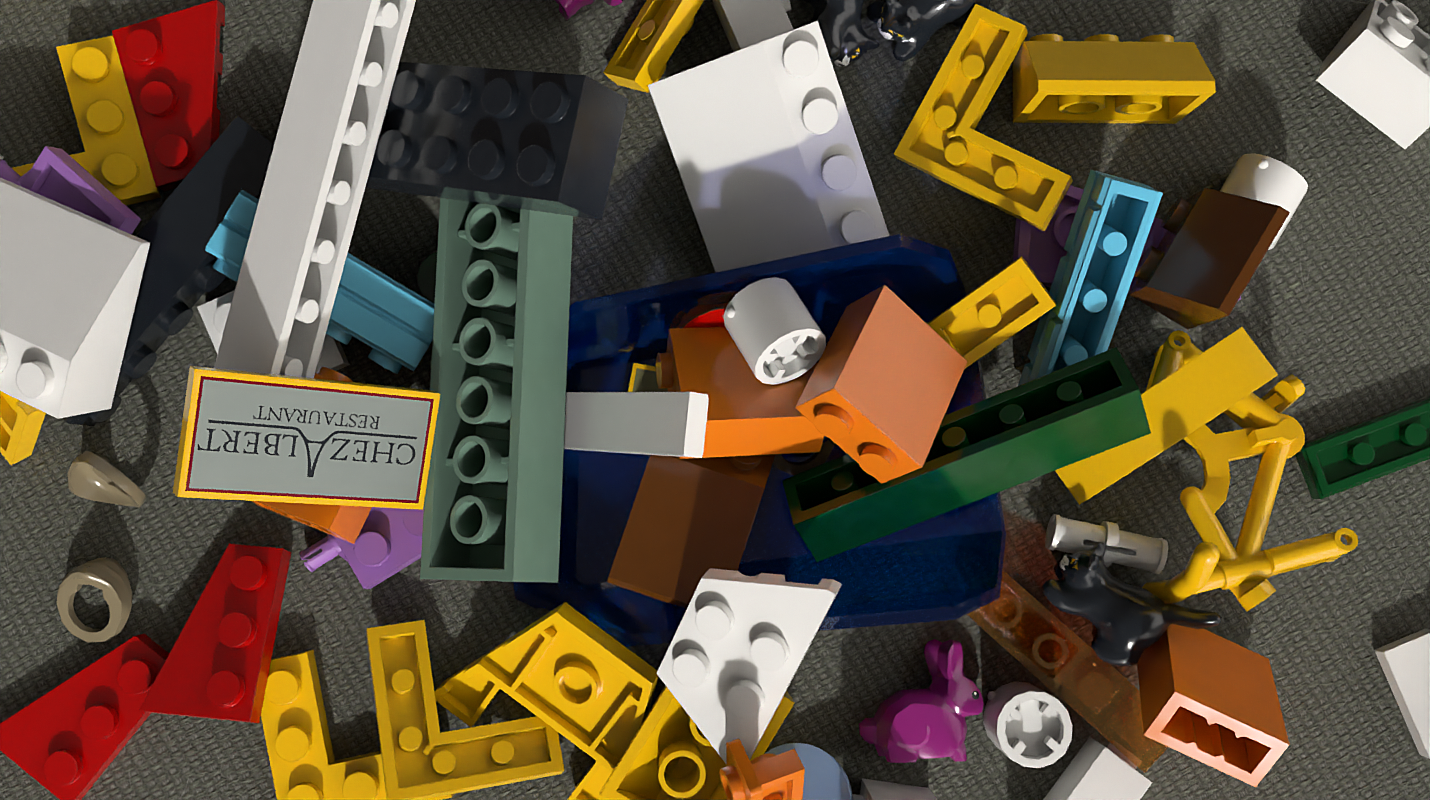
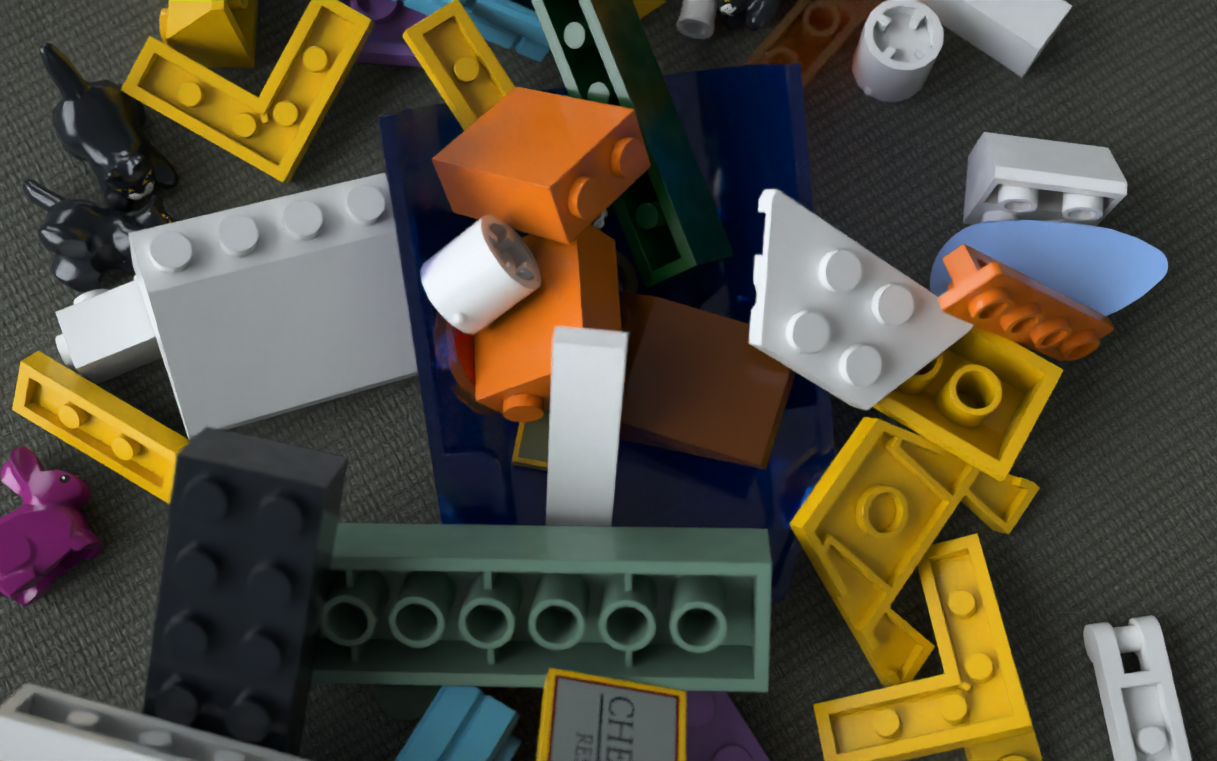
camera: 90 degrees left, 10 degrees down
(930, 719) = (898, 147): magenta animal -> none

